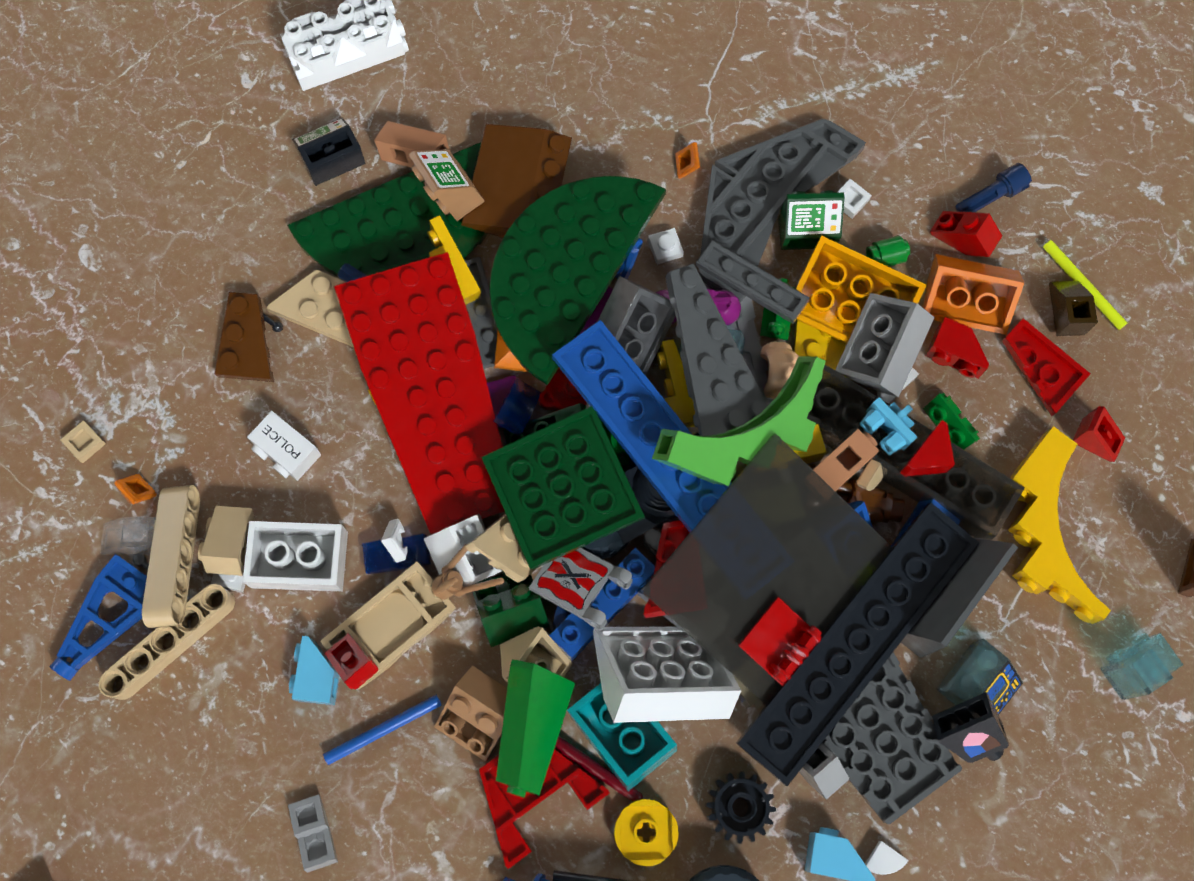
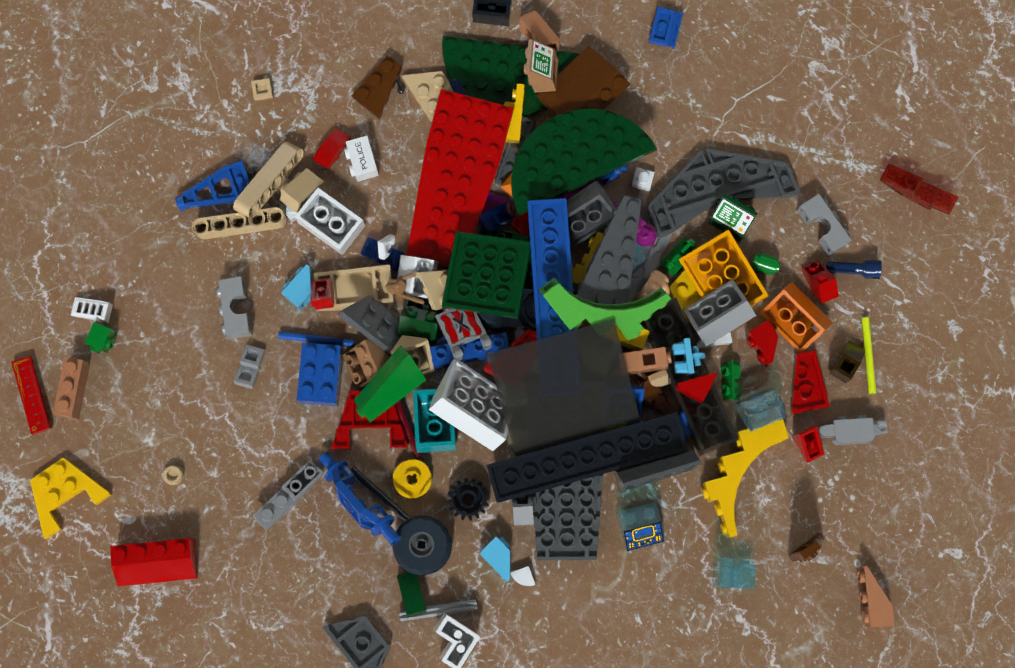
camera: 40 degrees right, 5 degrees up
(135, 489) = (272, 132): orange slope -> none
(217, 747) = (230, 292): none -> light grey arch
(232, 459) = (330, 148): none -> red slope
(421, 776) = (320, 374): none -> blue brick
(450, 653) = (374, 322): none -> dark grey wing
(564, 49) = (665, 27): none -> blue plate
(687, 160) = (690, 138): orange slope -> none
(752, 281) = (672, 230): dark grey tile -> none
(780, 641) = (543, 428): red hinge -> none
(855, 198) = (768, 219): white plate -> none
(942, 167) = (818, 210): none -> light grey arch
(972, 729) = (615, 543): black torso -> none
(995, 59) = (916, 190): none -> clear red slope
(1017, 430) = (761, 409): none -> clear light blue slope
(1141, 385) = (853, 431): none -> light grey hinge

